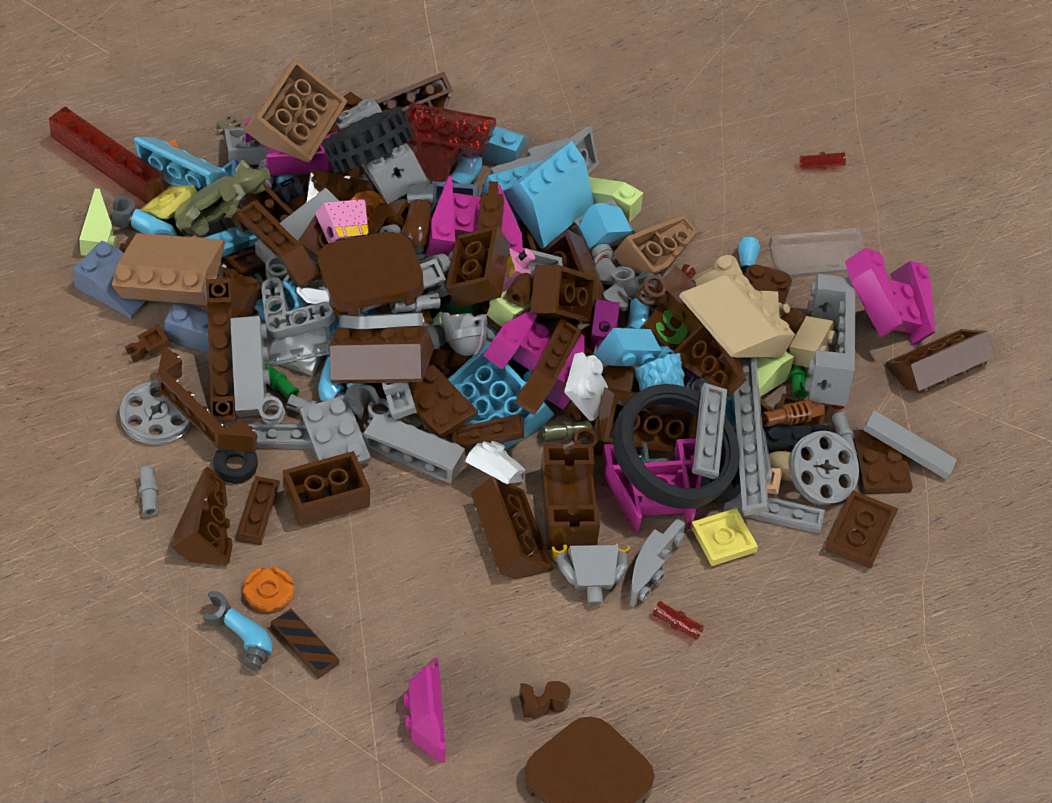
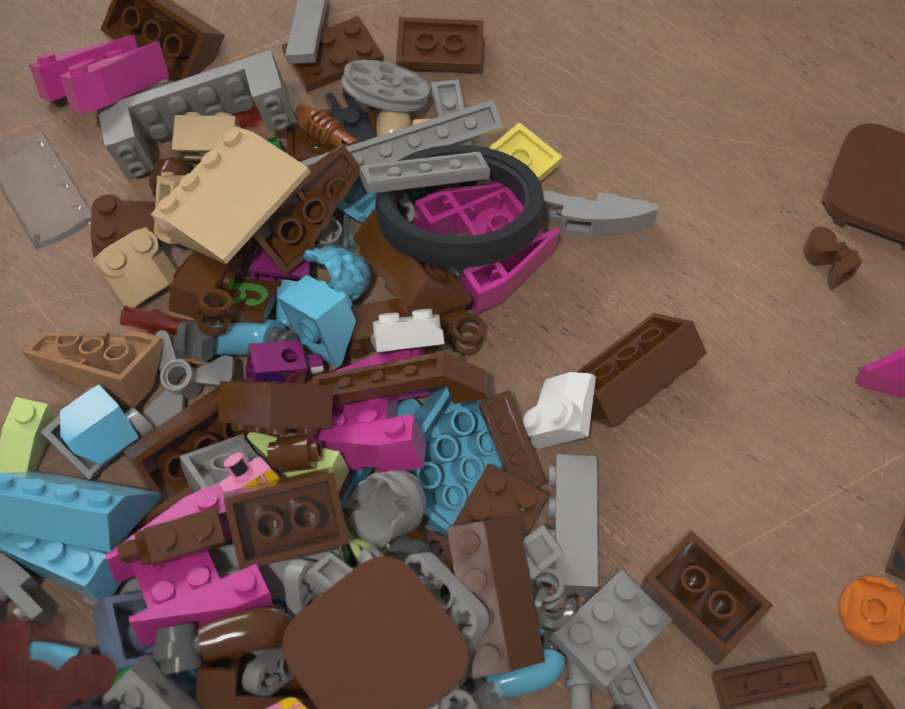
camera: 110 degrees left, 10 degrees up
(569, 496) = (561, 318): reddish brown piece -> none
(592, 568) = (642, 261): light grey torso -> none
(678, 620) = (653, 169): clear red pin -> none
(748, 252) = (68, 259): medium azure cone -> none
(842, 428) = (317, 90): light grey pin -> none

